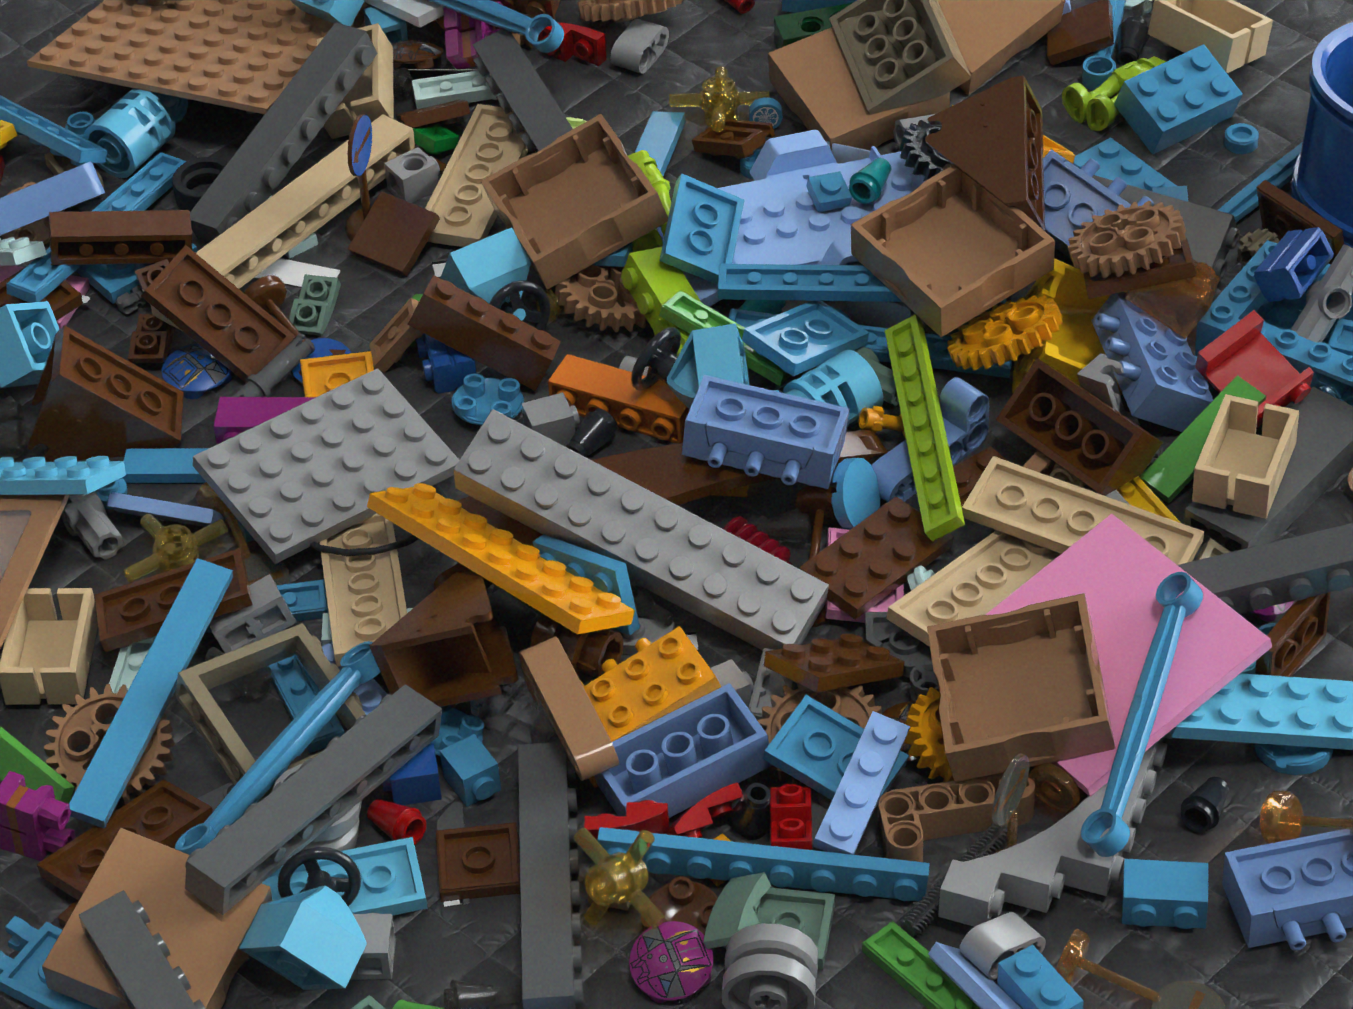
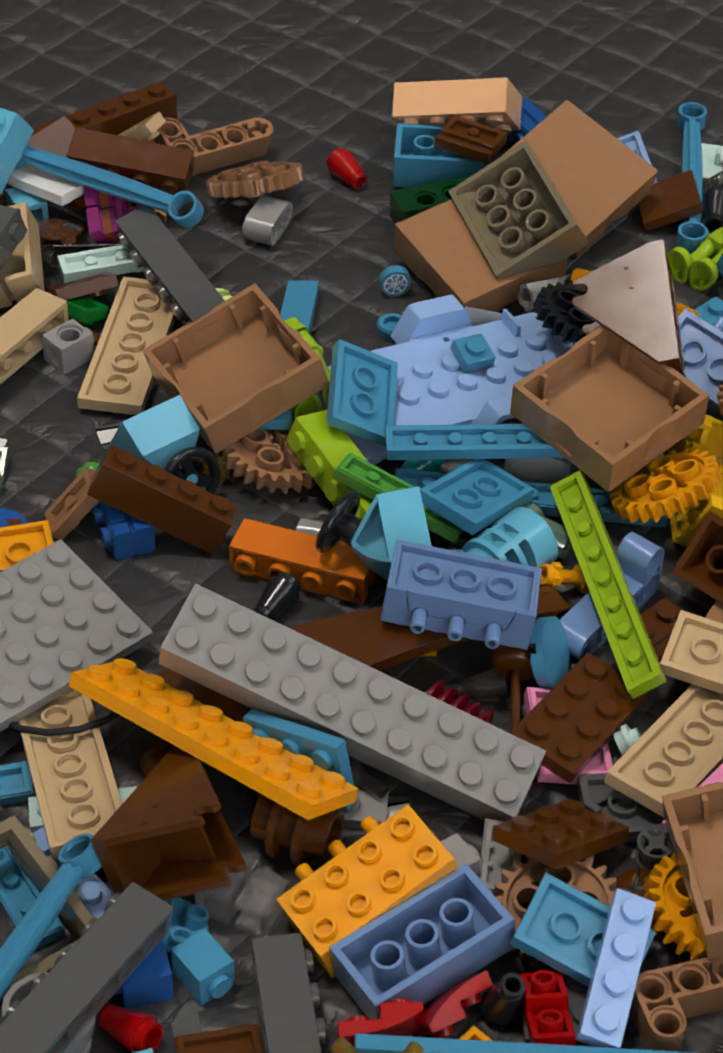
camera: 10 degrees left, 0 degrees up
(358, 157) = (31, 393): piece -> none
(393, 233) = (57, 402): reddish brown tile -> none
(480, 395) = (168, 566): dark azure dish -> none
(552, 417) = (236, 582): light grey brick -> none
(568, 707) = (287, 869): medium nougat beam -> none
(580, 42) = (216, 219): red slope -> none
(717, 99) = (349, 268): clear yellow bar -> none
(736, 140) = (369, 304): reddish brown plate -> none
(869, 181) = (510, 342): teal cone -> none

